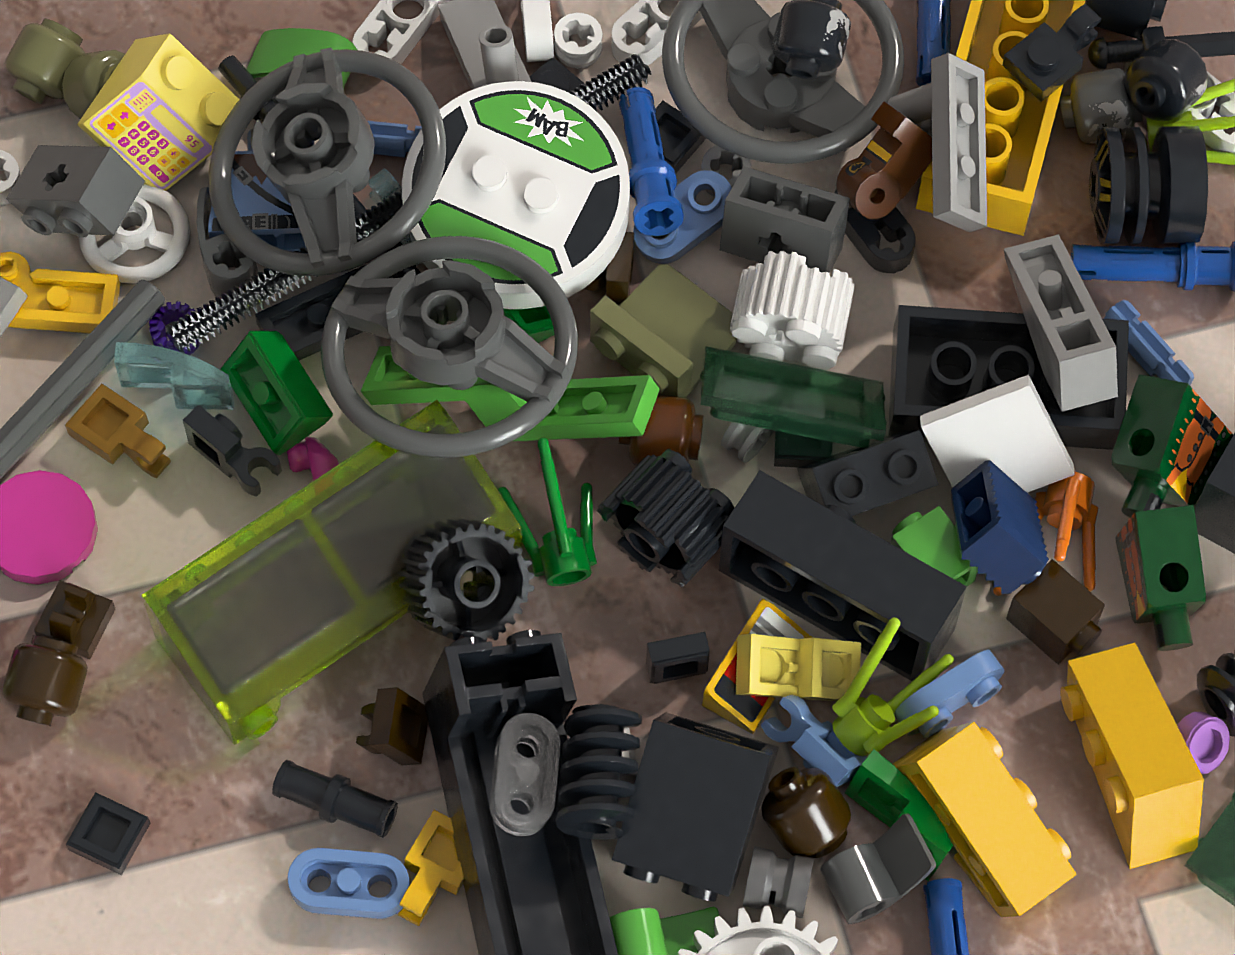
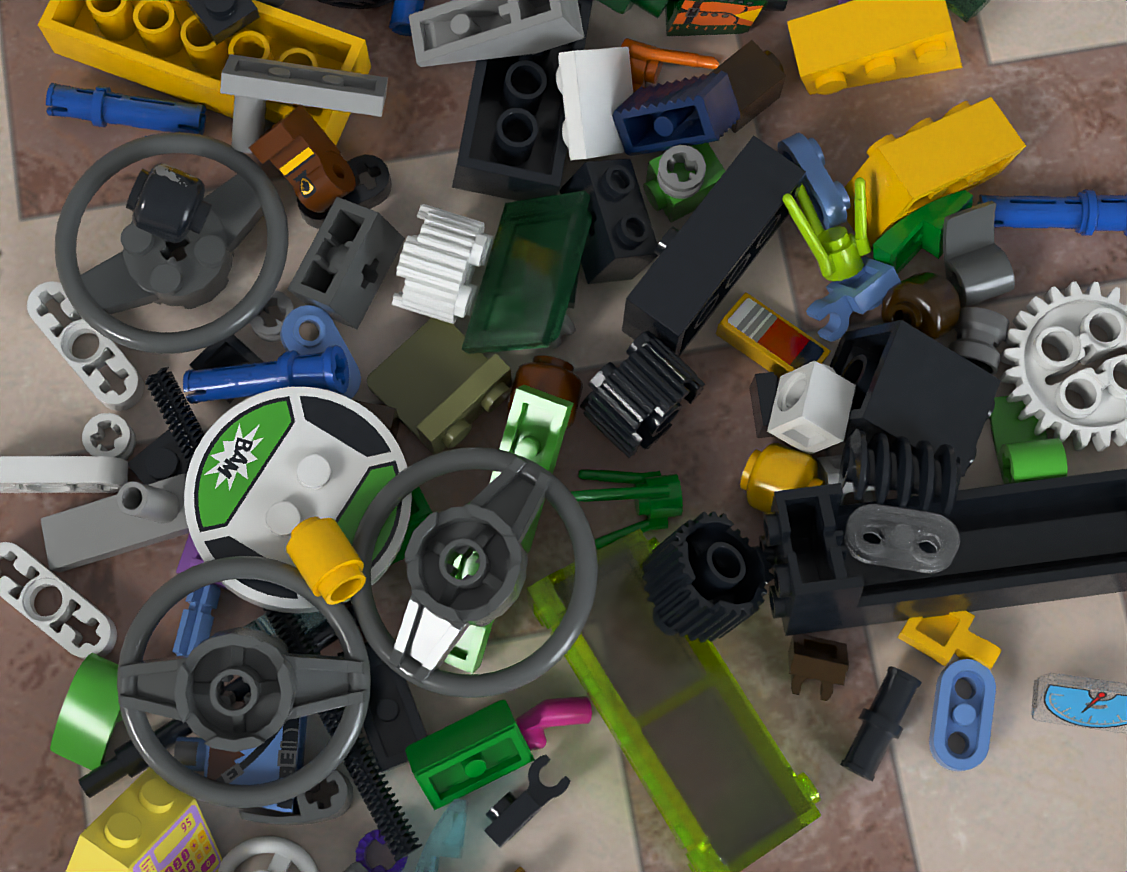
camera: 85 degrees left, 10 degrees up
(446, 206) = (326, 559): none -> yellow brick
(599, 670) = (777, 470): none -> yellow head
(670, 685) = (811, 408): none -> white brick
(795, 666) = (780, 302): light yellow slope -> none
(937, 518) = (692, 162): none -> light grey bush

